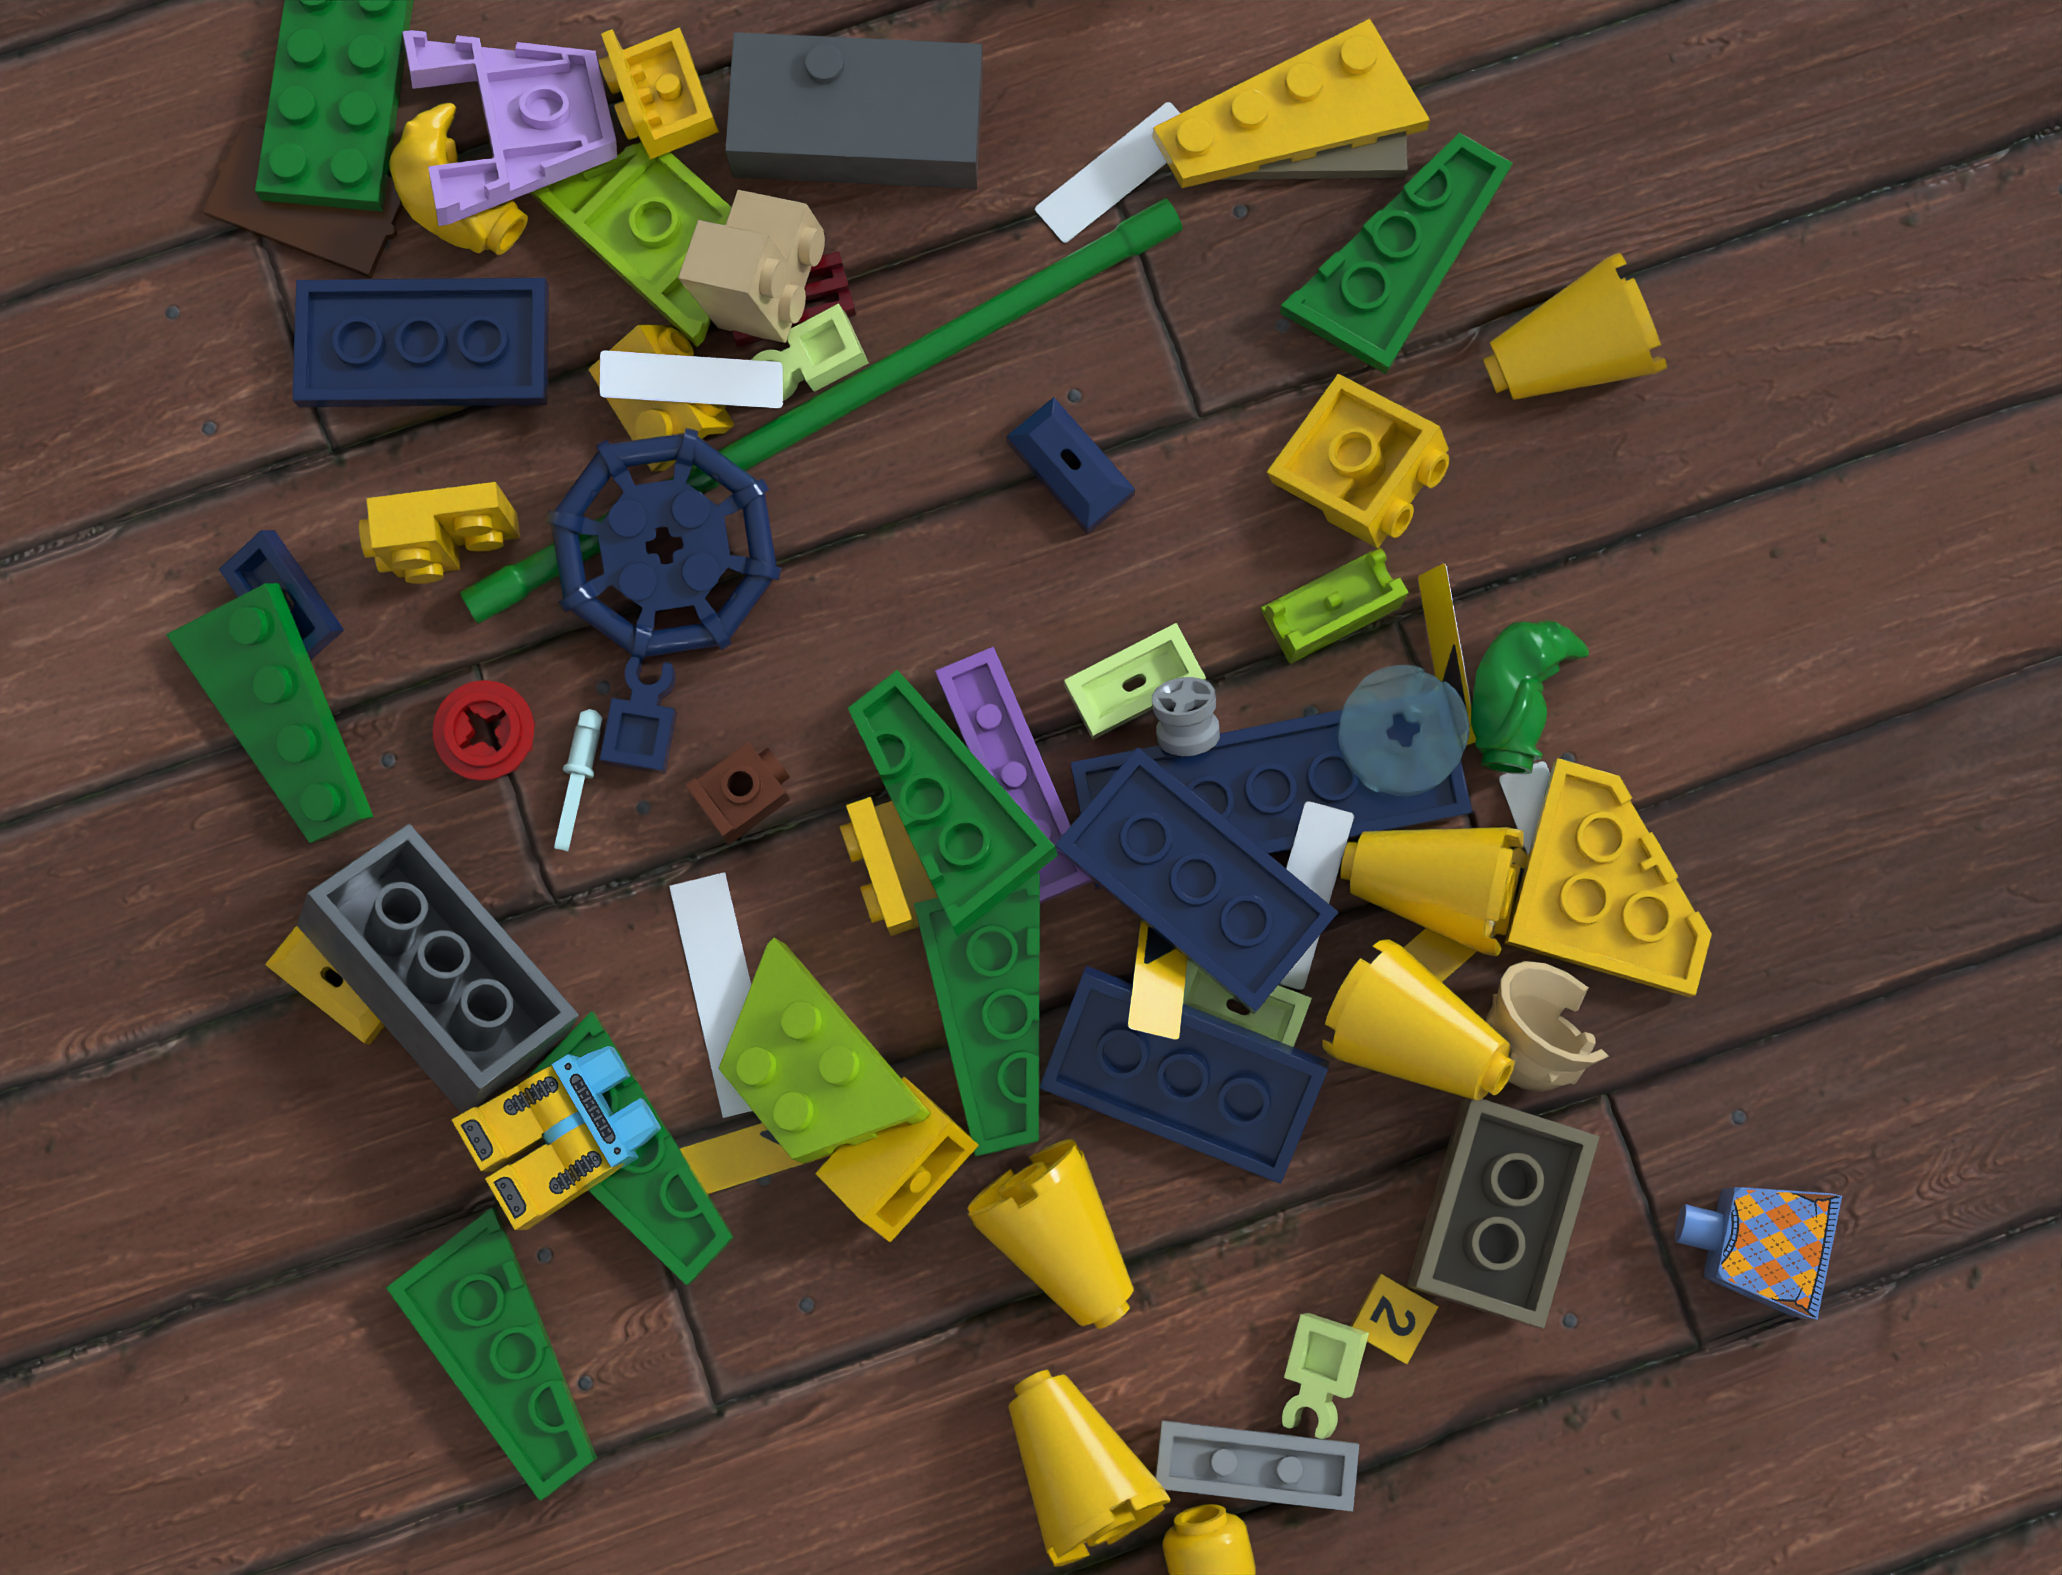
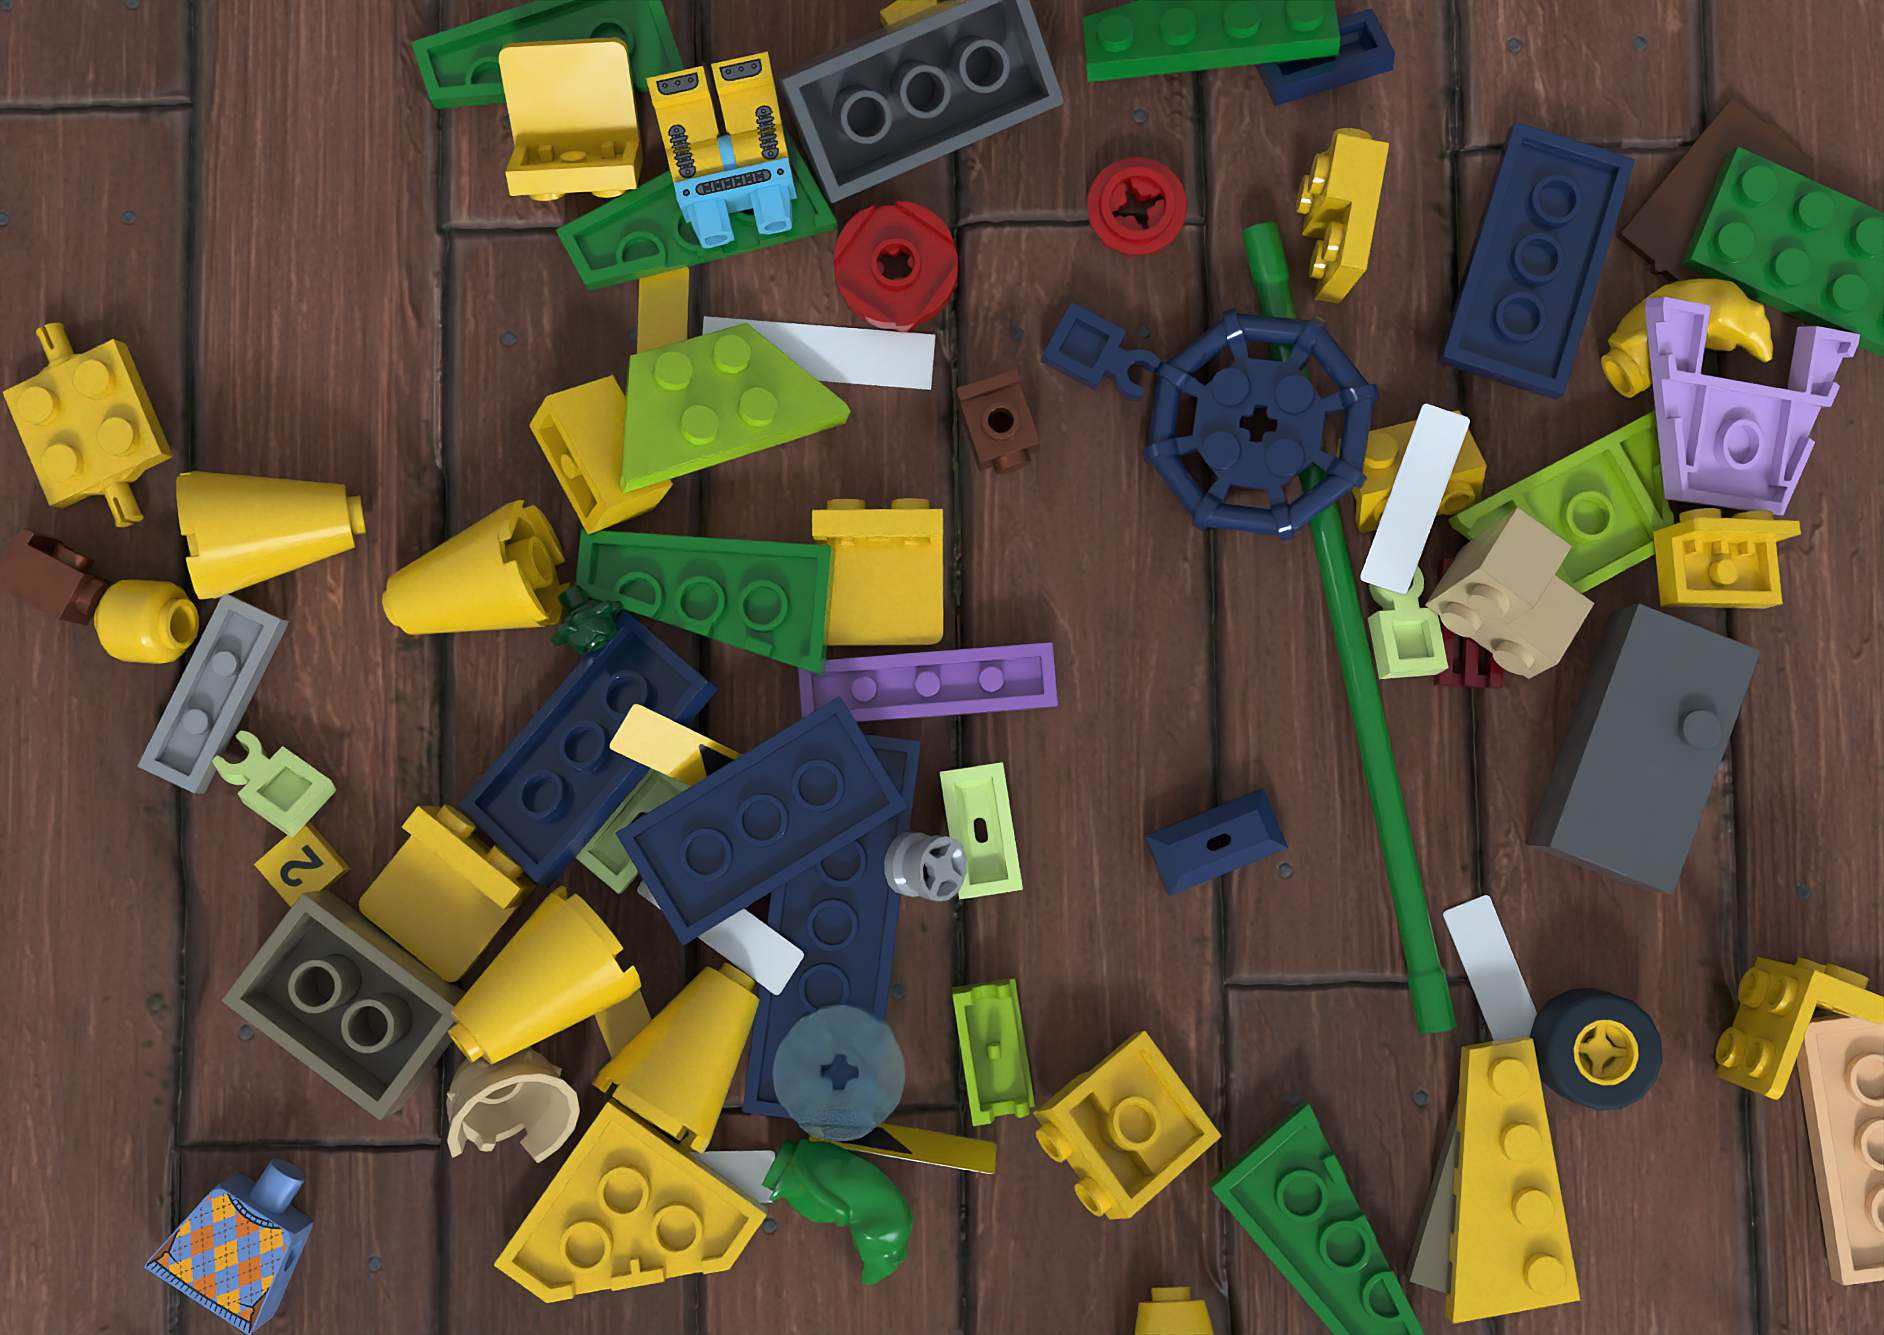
camera: 105 degrees right, 5 degrees up
(573, 1304) = (571, 118): none -> yellow bracket
(579, 767) = (1074, 284): light aqua piece -> none
(598, 909) = (888, 230): none -> red plate
(954, 811) = (900, 613): green wing -> none
(1065, 1115) = (586, 622): none -> dark green plant
(1142, 47) = (1620, 1057): none -> black wheel
(1368, 1166) = (445, 892): none -> yellow bracket

